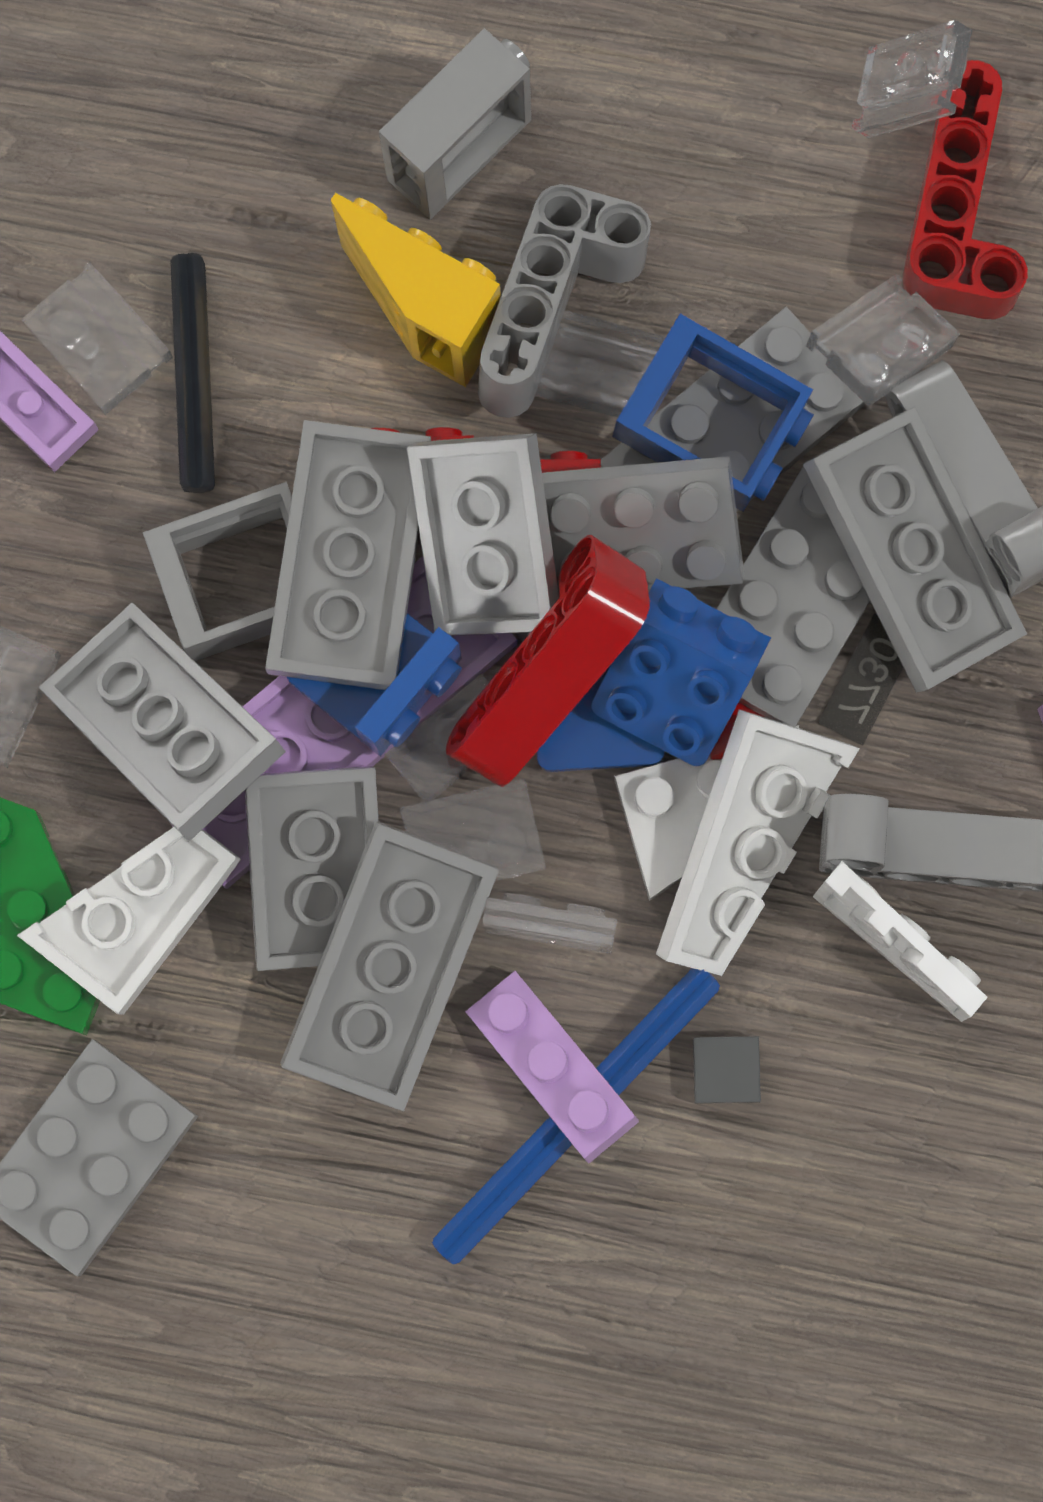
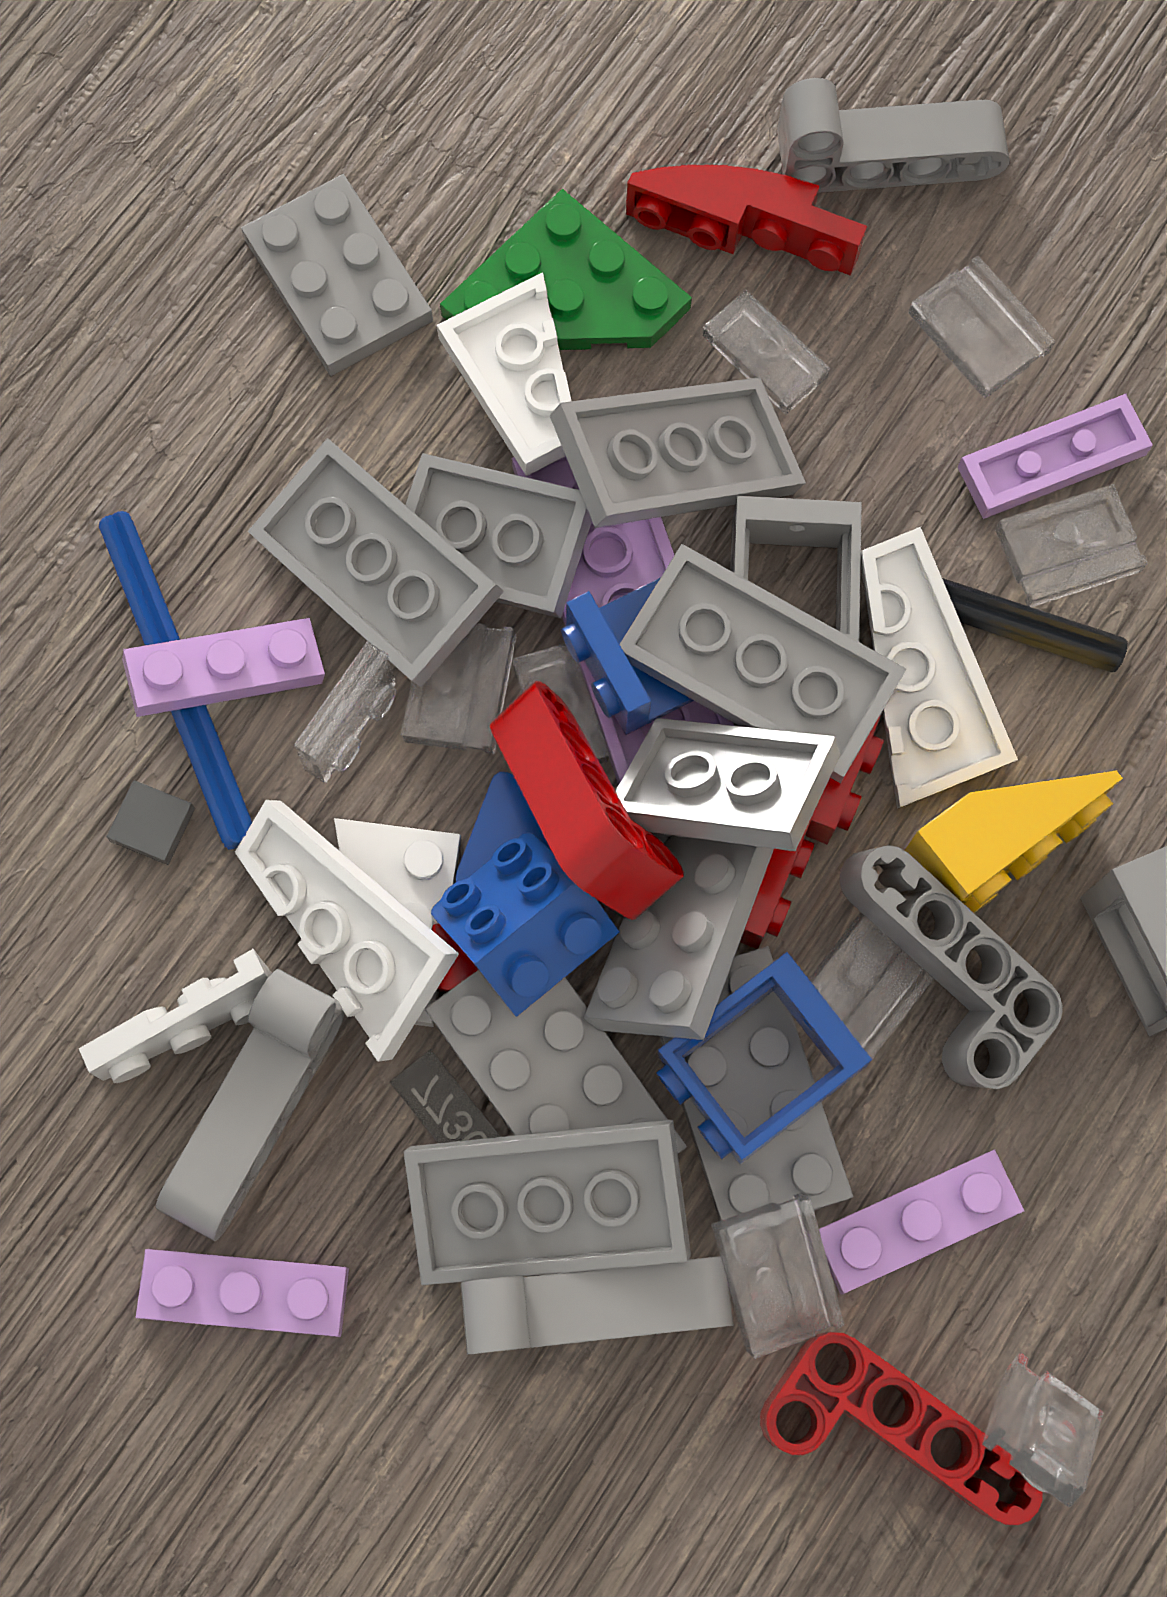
camera: 105 degrees right, 5 degrees down
(258, 430) = (941, 713): none -> white wing
(779, 247) = (919, 1221): none -> lavender plate

